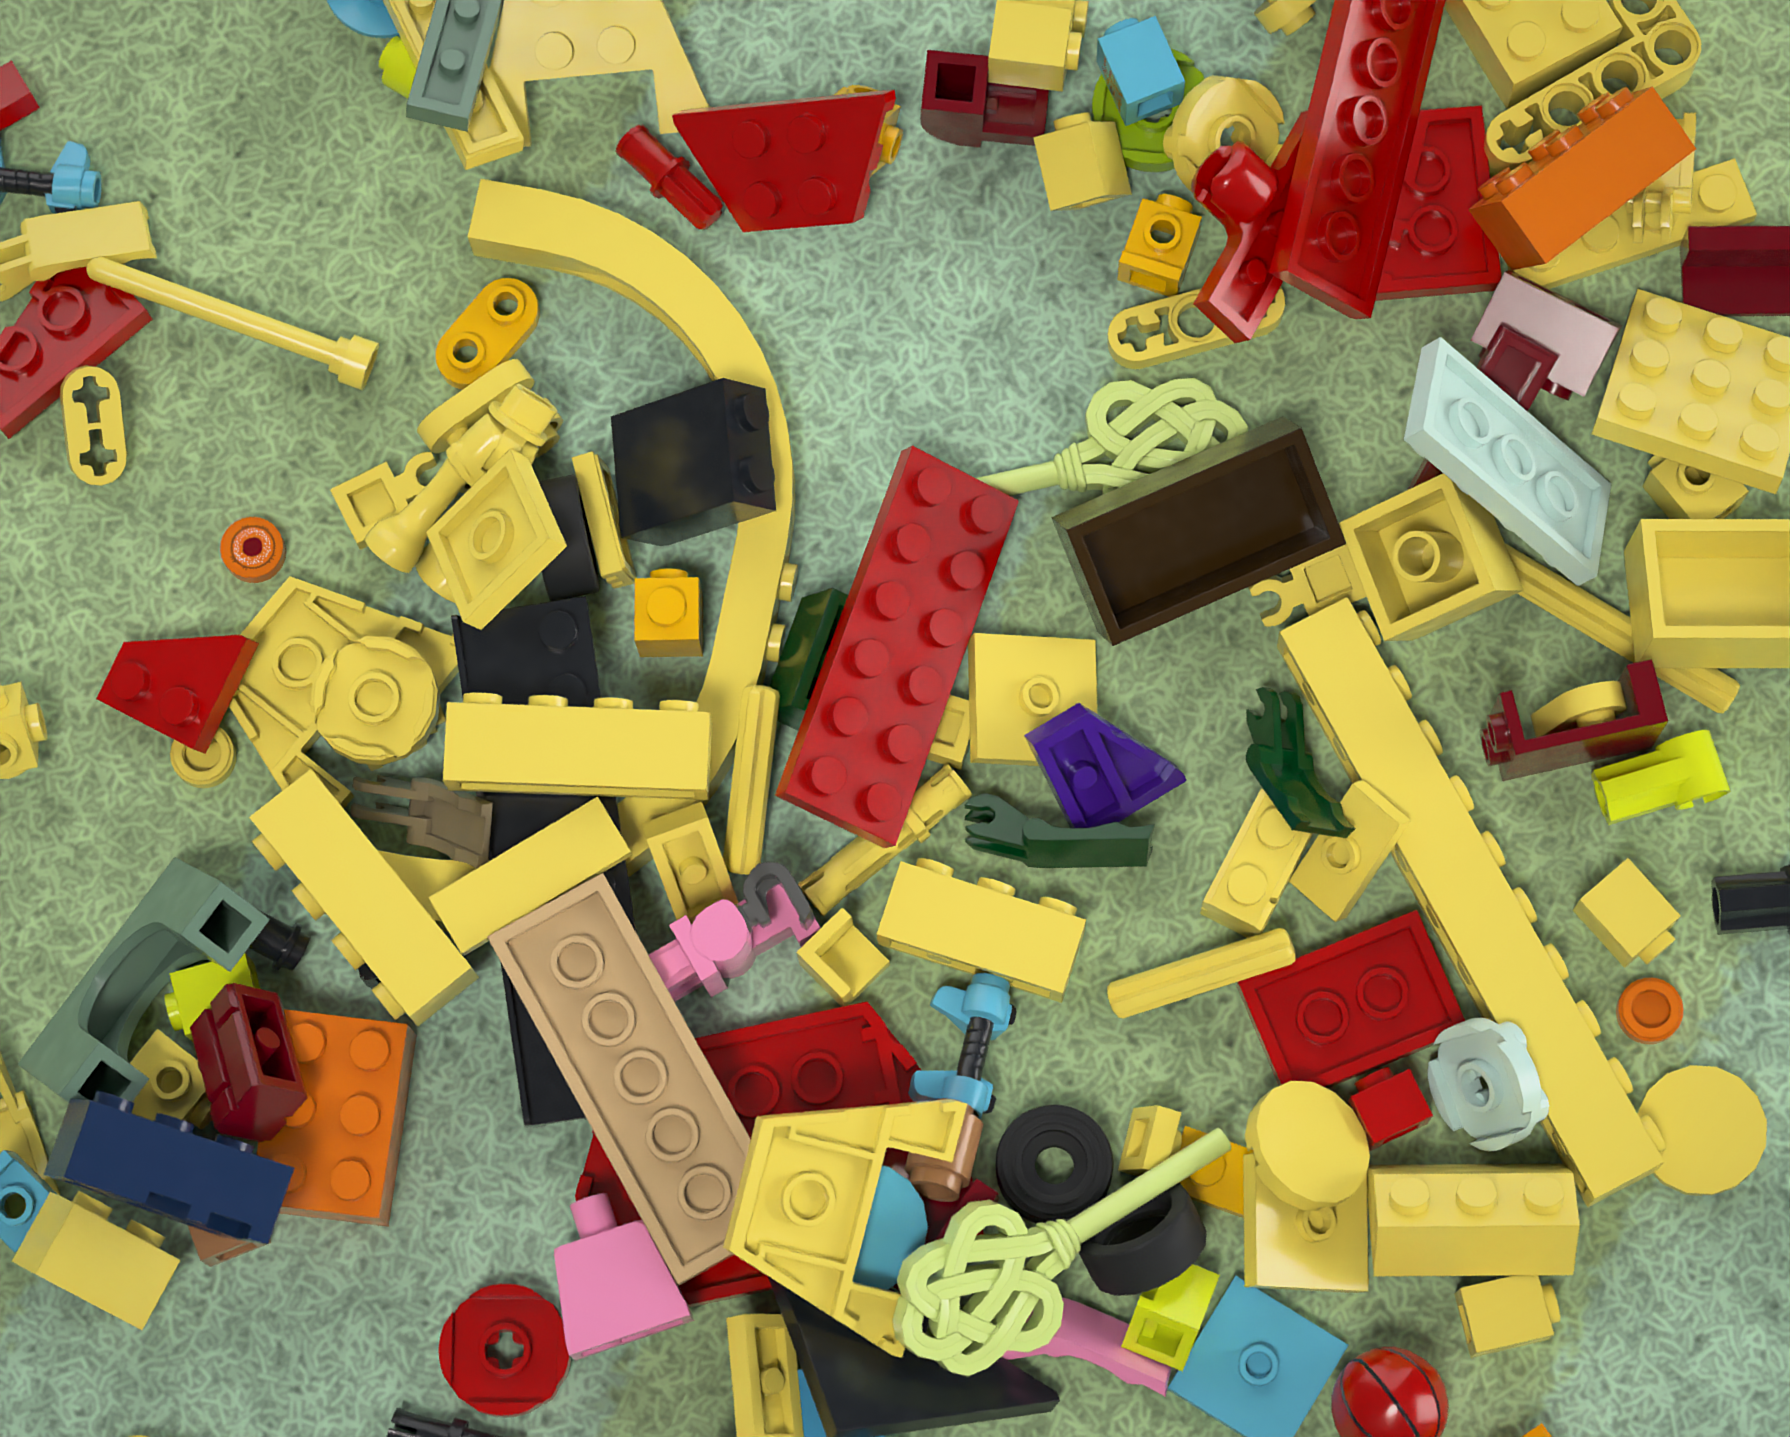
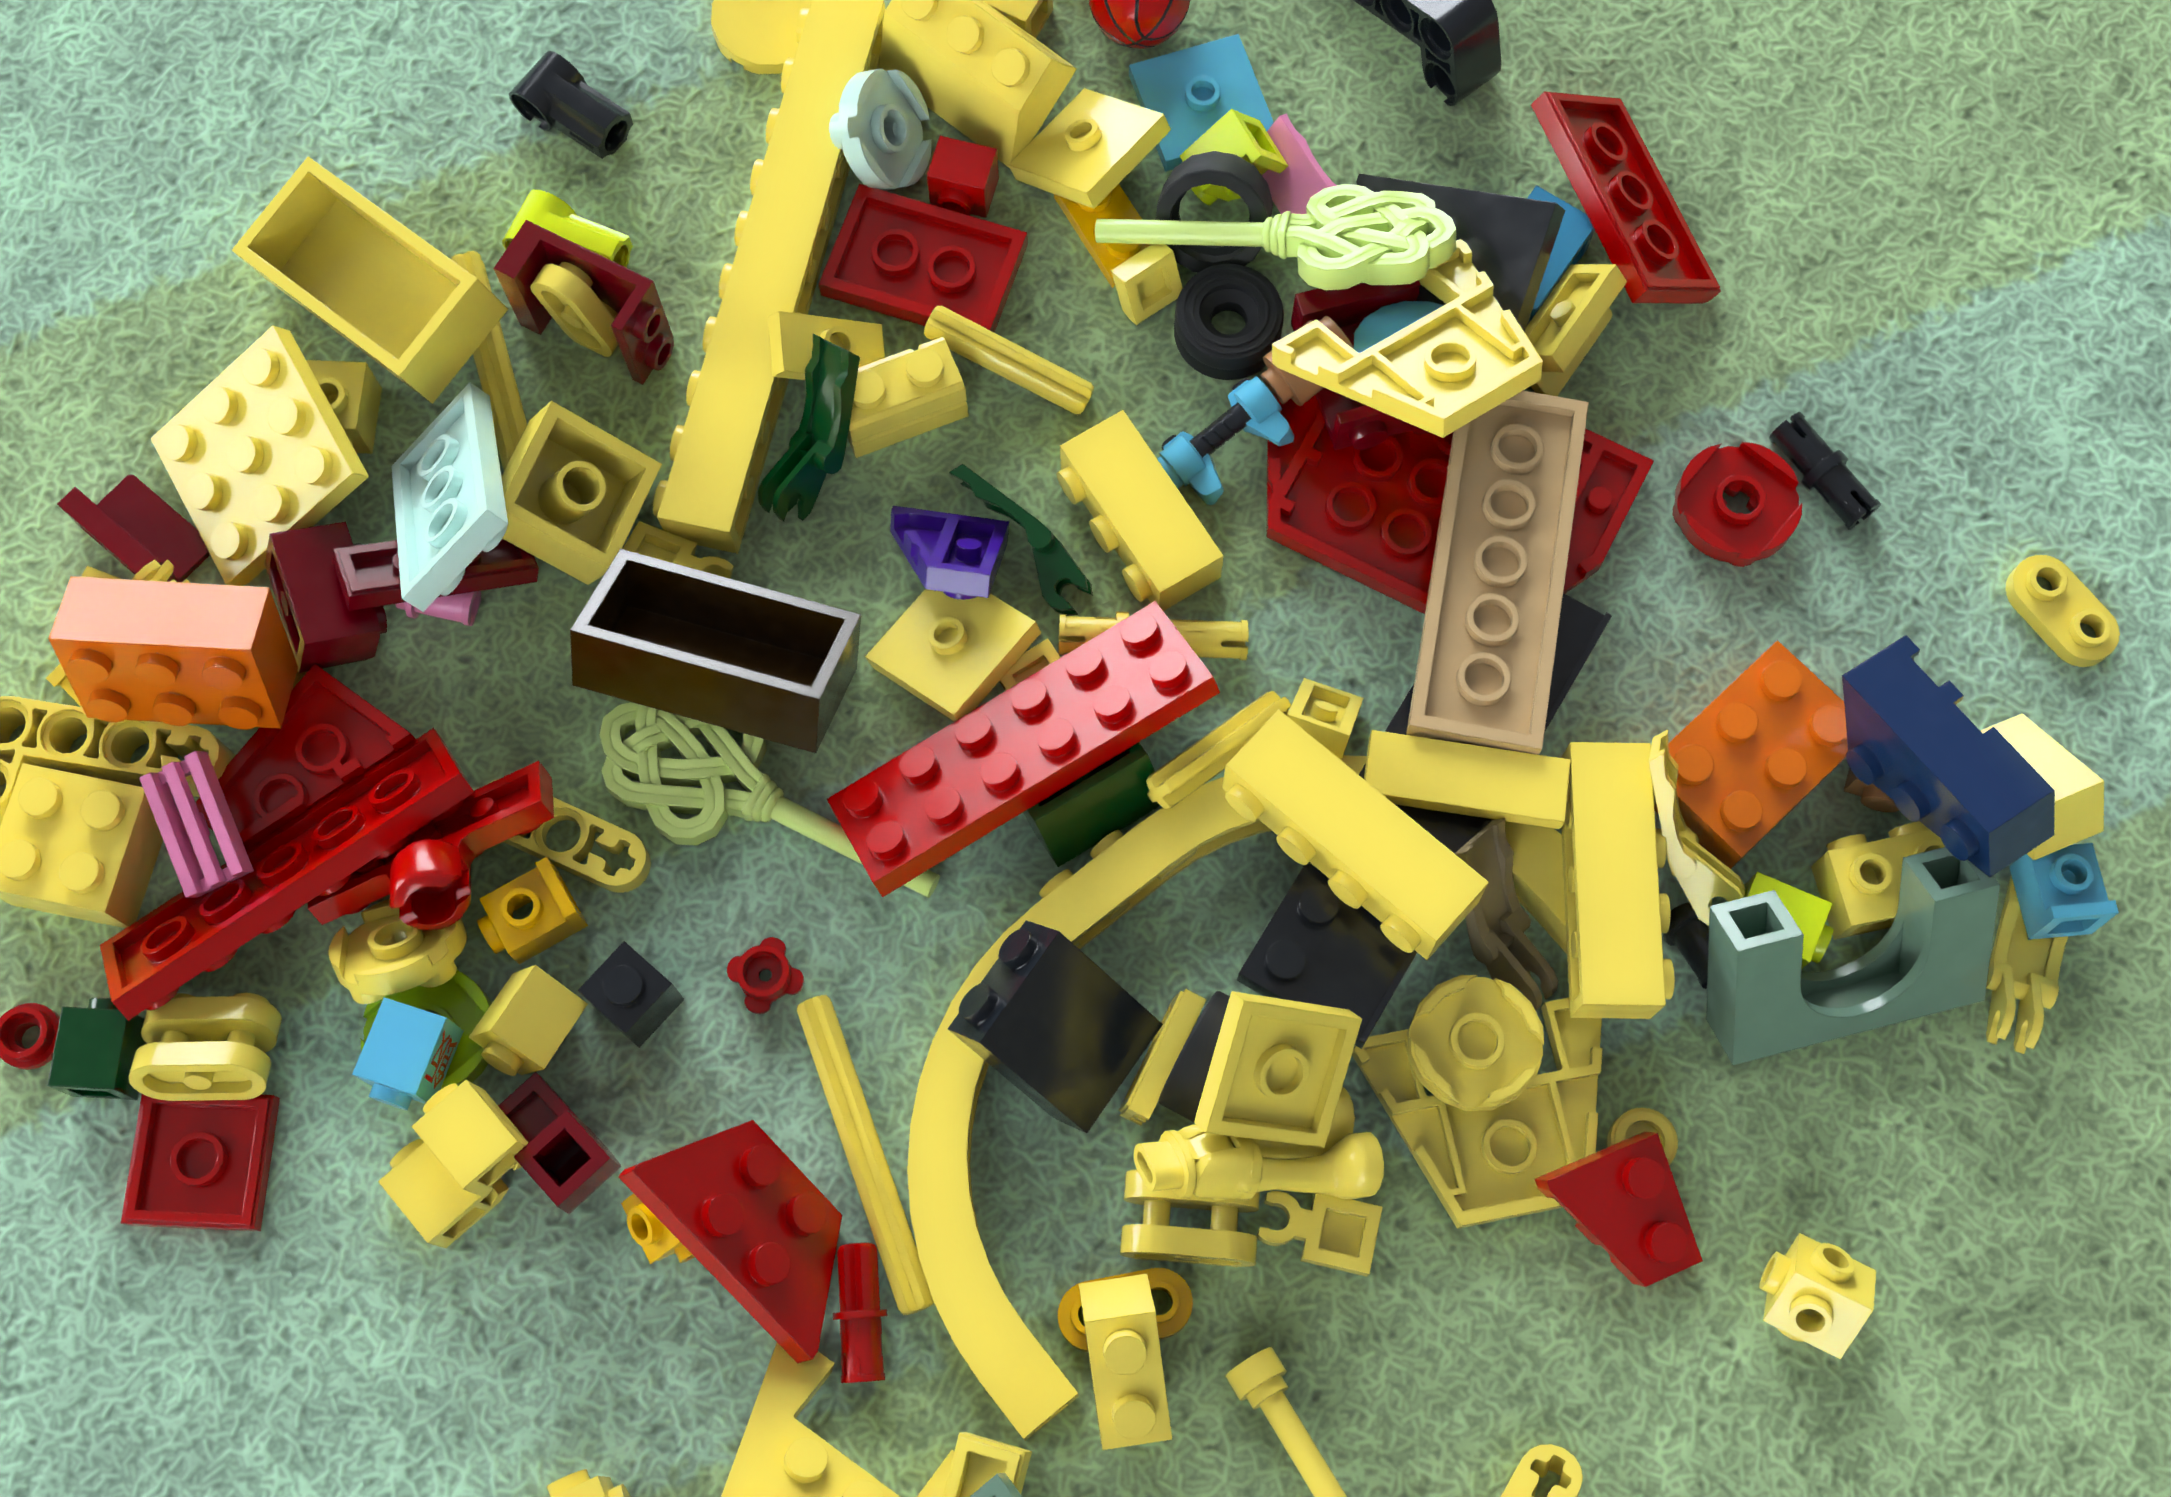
camera: 145 degrees left, 5 degrees down
(248, 1062) = (1805, 820): dark red brick -> none
(253, 549) = (1471, 1285): orange tile -> none
(337, 982) = (1694, 867): none -> light yellow arm
(452, 282) = (1125, 1361): none -> light yellow brick
(613, 1282) = (1630, 460): bright pink torso -> none
(668, 614) = (1175, 933): yellow brick -> none
(731, 935) = (1341, 646): bright pink hips -> none
(775, 290) = (865, 1155): none -> light yellow axle
(841, 959) = (1262, 576): light yellow panel -> none
(947, 330) = (747, 969): none -> red plate
(1028, 246) = (631, 994): none -> black brick
(1307, 1145) = (1044, 177): light yellow tile -> none
(1457, 84) = (174, 833): none -> bright pink tile
(1628, 915) = (679, 173): light yellow brick -> none
(1649, 1010) = (726, 114): orange tile -> none

